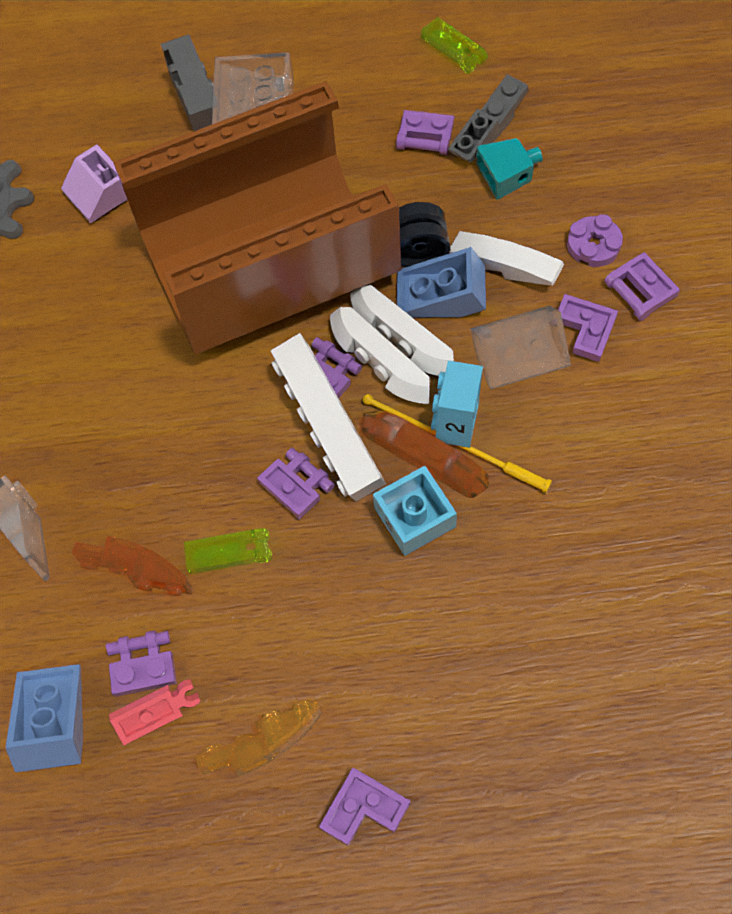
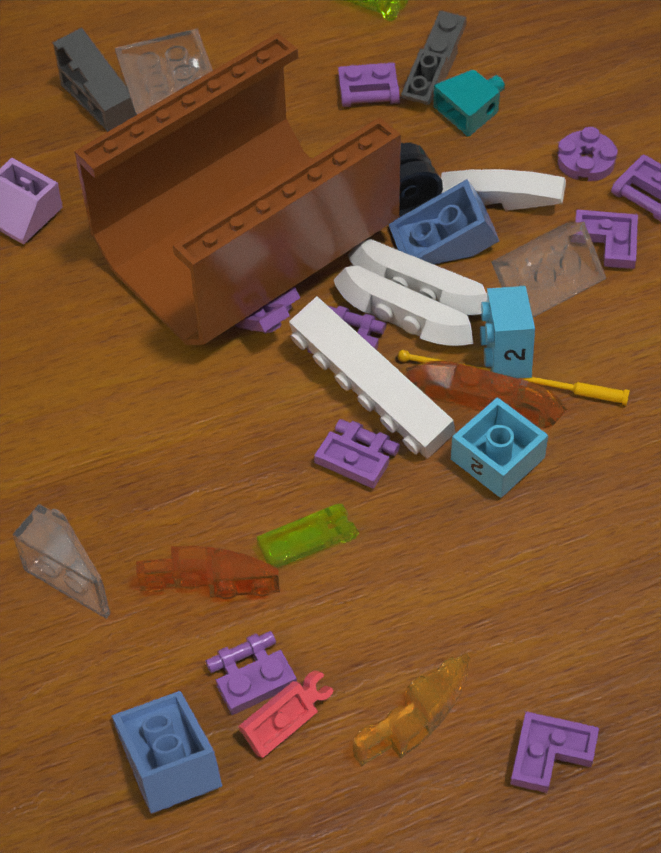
camera: 20 degrees left, 10 degrees down
(261, 339) = (270, 315): none -> medium lavender plate

